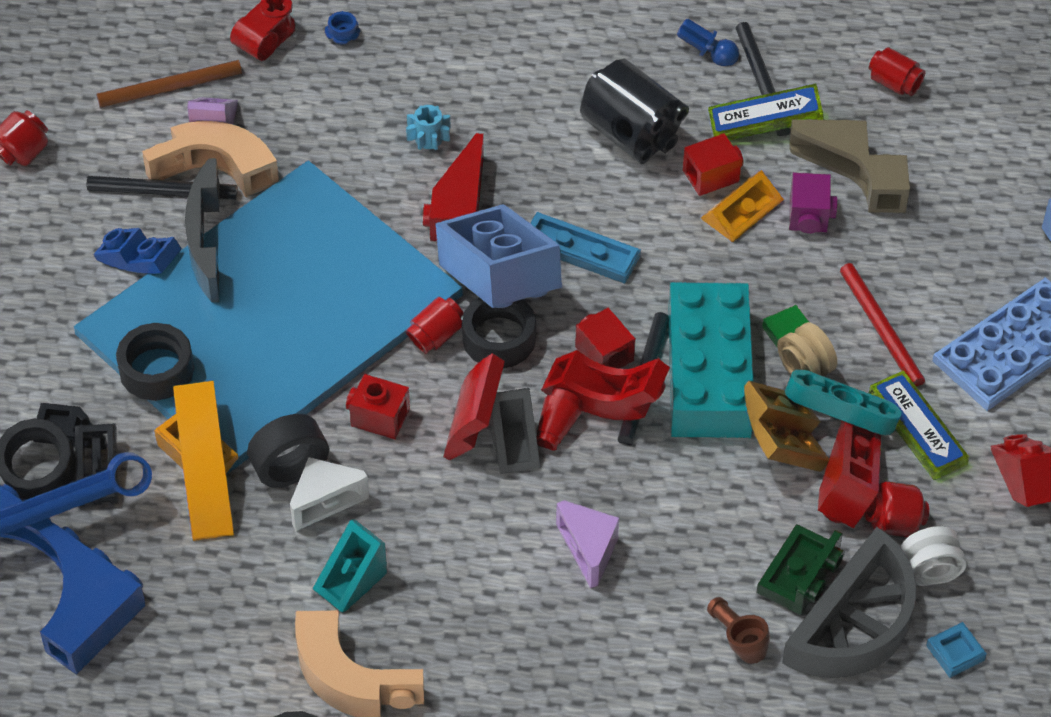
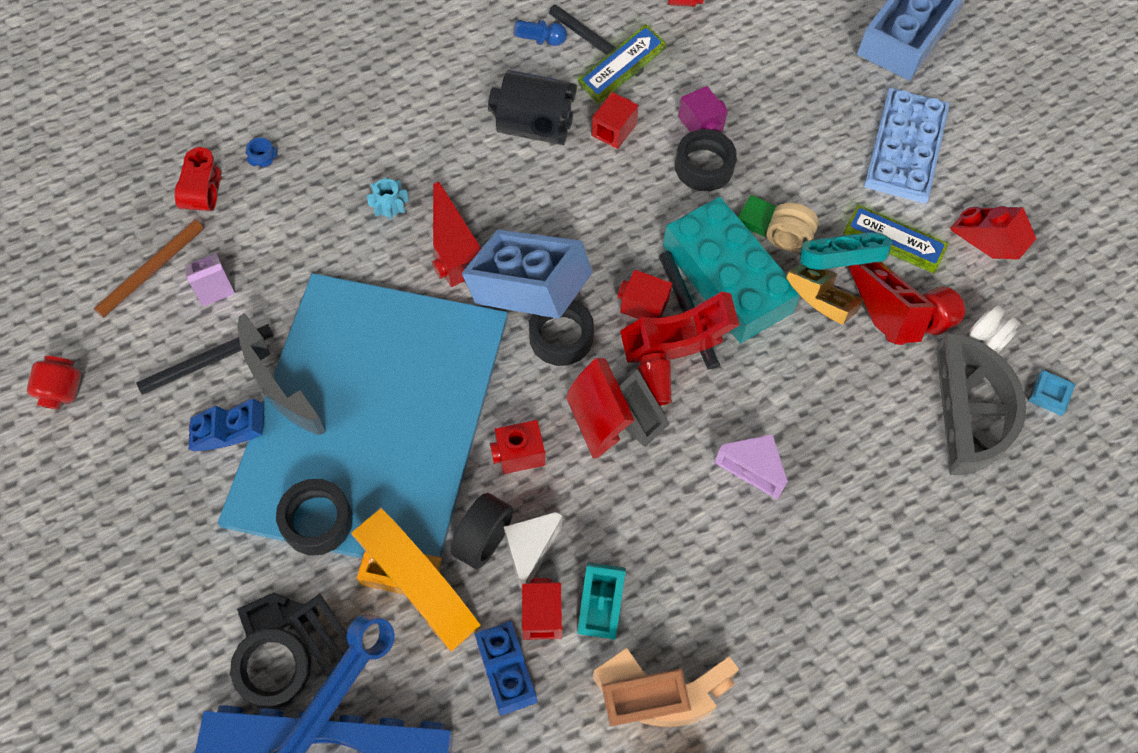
camera: 35 degrees left, 10 degrees up
(228, 577) = (506, 668): none -> blue slope
(235, 148) = (227, 300): light nougat arch -> none
(291, 544) = (541, 610): none -> red brick
(320, 651) = (646, 697): none -> nougat tile
(435, 324) = (512, 354): red brick -> none
(589, 249) = (591, 229): dark azure tile -> none
(743, 206) = (654, 140): light orange slope -> none
(745, 634) = (917, 465): copper bar -> none
(770, 270) = (705, 179): none -> black tyre
(800, 567) = (915, 394): dark green bracket -> none
(845, 150) = (697, 63): dark tan arch -> none
(881, 324) = (812, 177): red bar -> none

